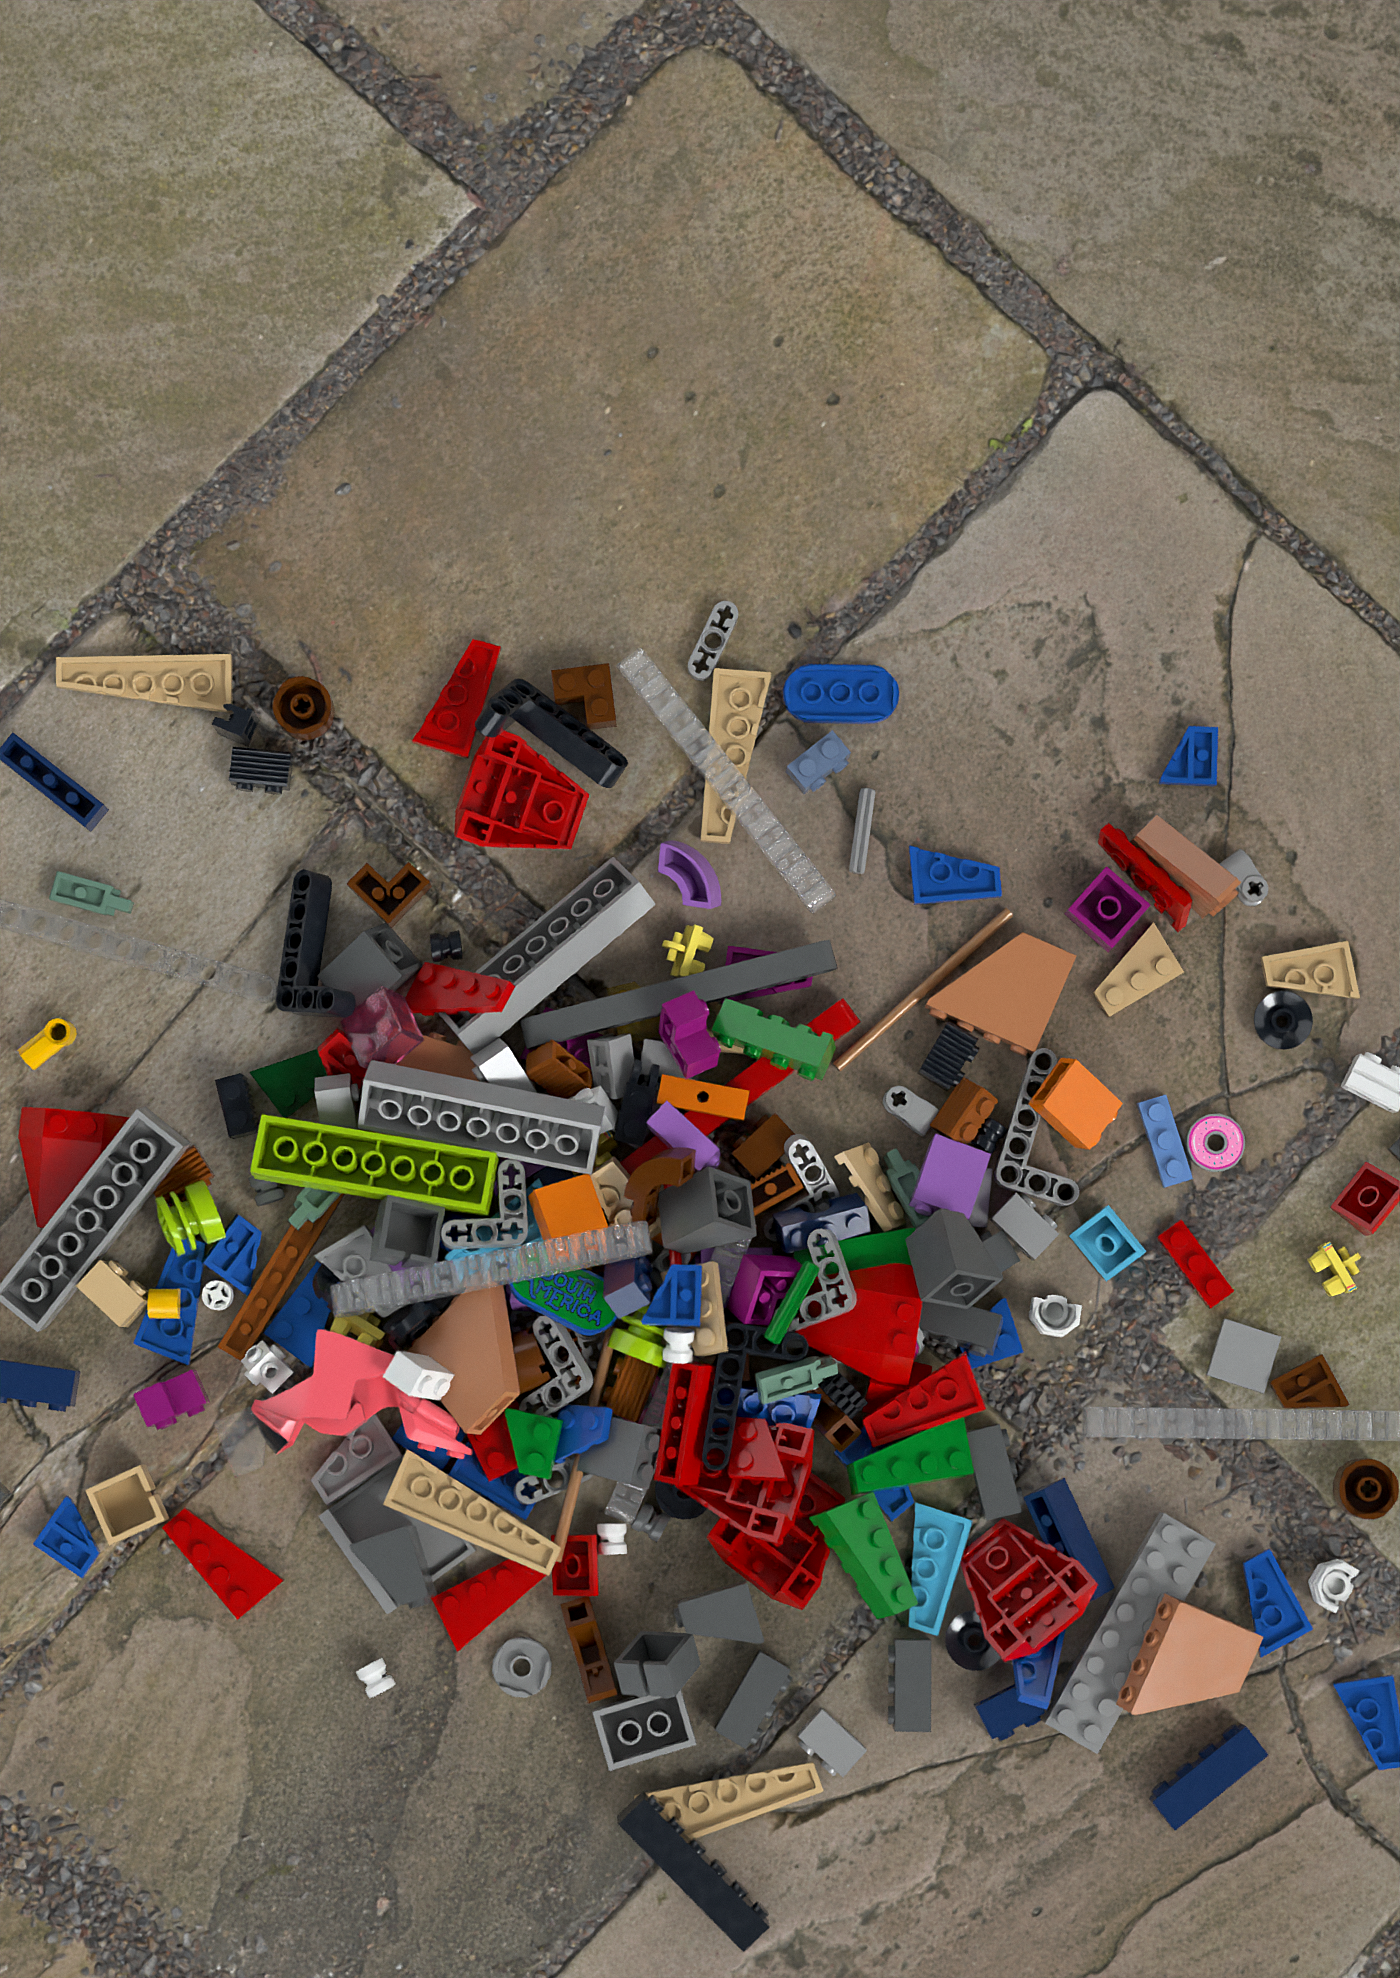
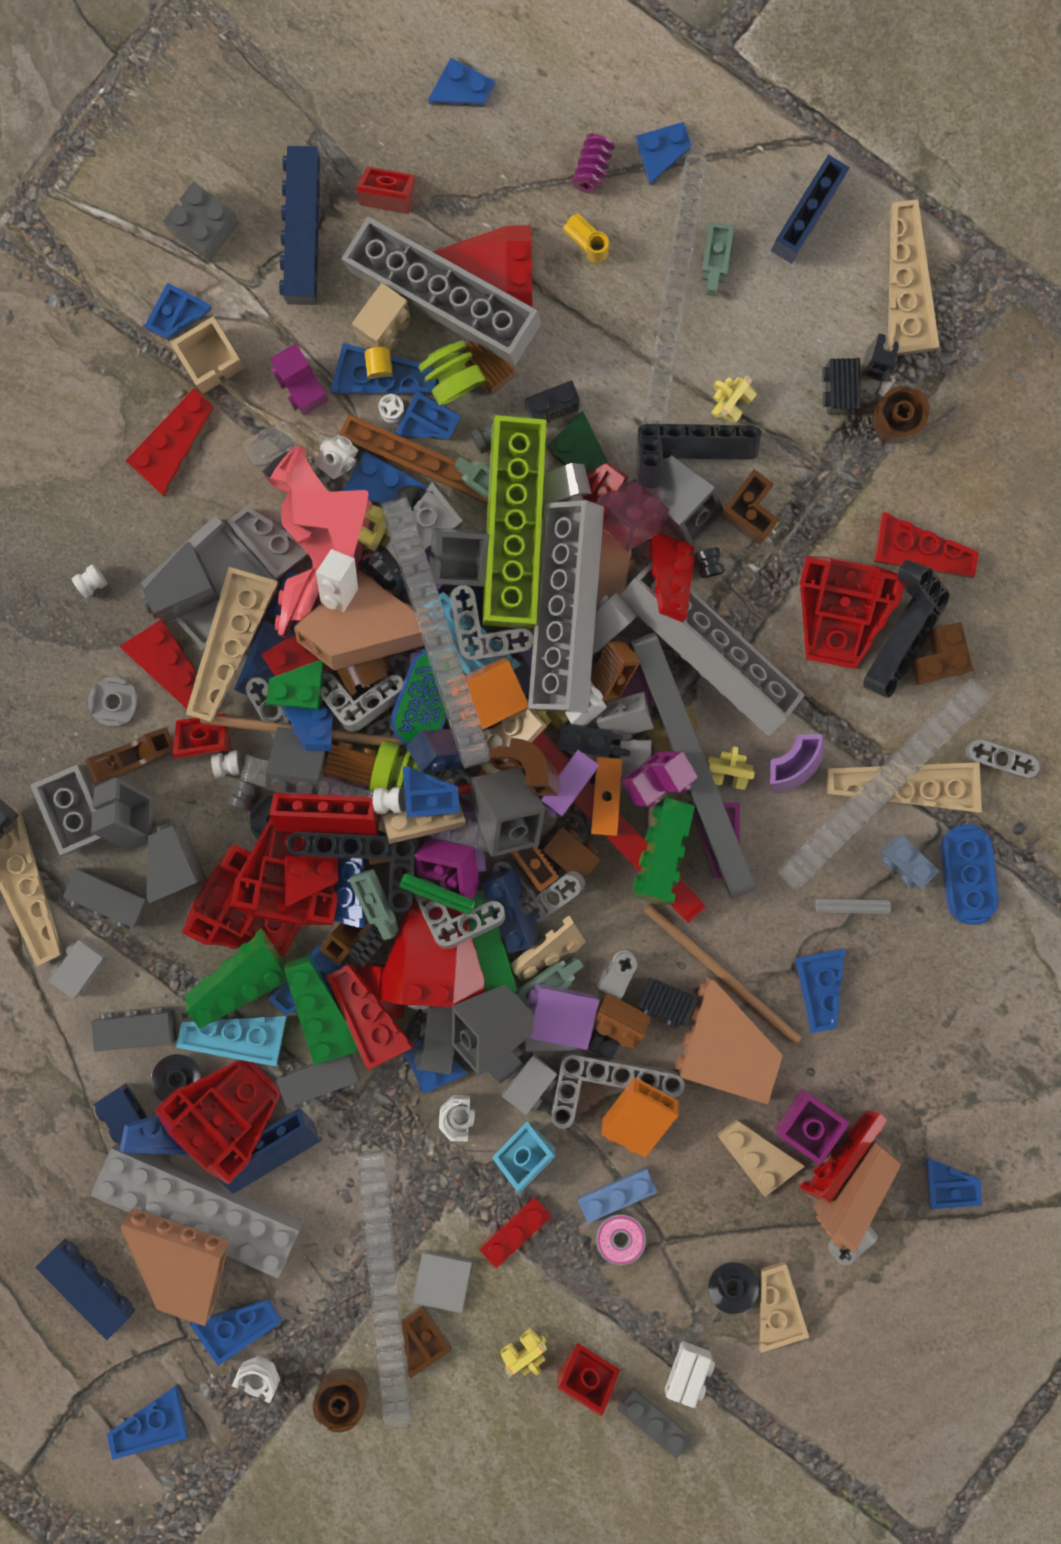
camera: 85 degrees right, 5 degrees up
(254, 900) = (727, 396): none -> light yellow hips

